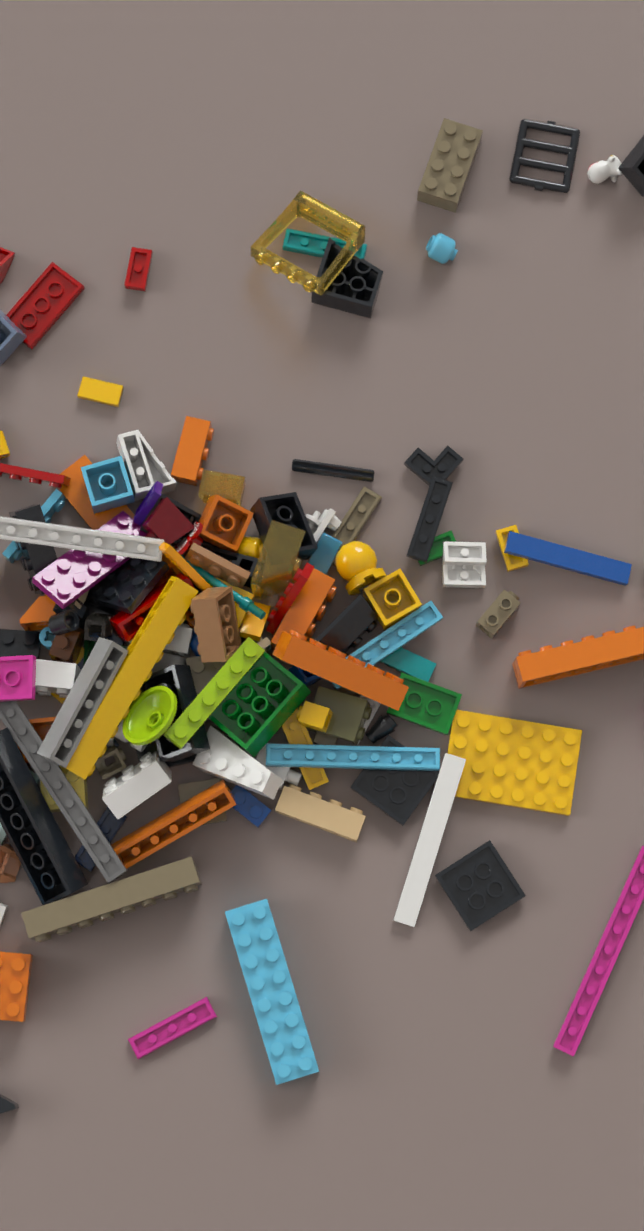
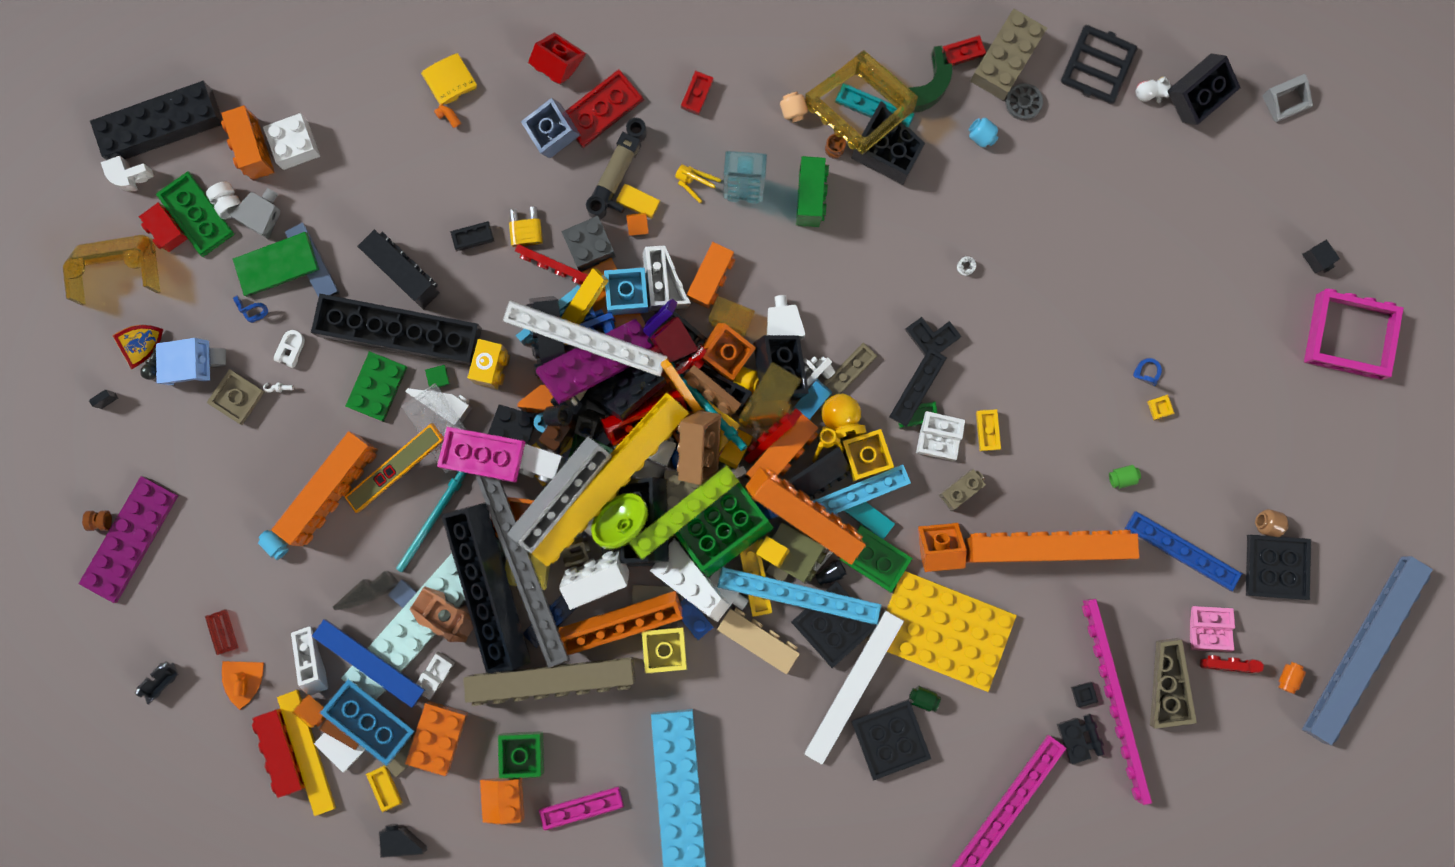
camera: 10 degrees right, 5 degrees up
(58, 444) = (588, 243): none -> dark grey brick
(67, 498) = (585, 297): none -> yellow tile
(78, 340) = (627, 148): none -> piece
(86, 520) = (605, 321): none -> blue hips
(87, 1036) = (502, 800): none -> orange slope
(97, 983) = (520, 754): none -> green brick
(104, 415) = (637, 224): none -> orange tile
(147, 353) = (688, 174): none -> yellow plant
(205, 342) = (744, 176): none -> clear light blue brick
(224, 842) = (664, 650): none -> light yellow brick
(241, 262) = (794, 106): none -> light nougat head
(277, 478) = (784, 319): none -> white torso
(278, 344) = (812, 191): none -> green brick
(292, 290) = (835, 142): none -> dark orange wheel
(333, 470) = (837, 321): black axle -> none
(346, 590) = (827, 440): none -> yellow plant
(381, 218) = (933, 91): none -> dark green arch
(403, 171) = (964, 50): none -> red plate
(457, 392) = (972, 265): none -> white bush
(476, 209) = (1024, 101): none -> dark grey wheel
(490, 677) = (942, 547): none -> orange slope
(505, 836) = (924, 699): none -> dark green brick
(567, 558) = (1038, 451): blue tile -> none

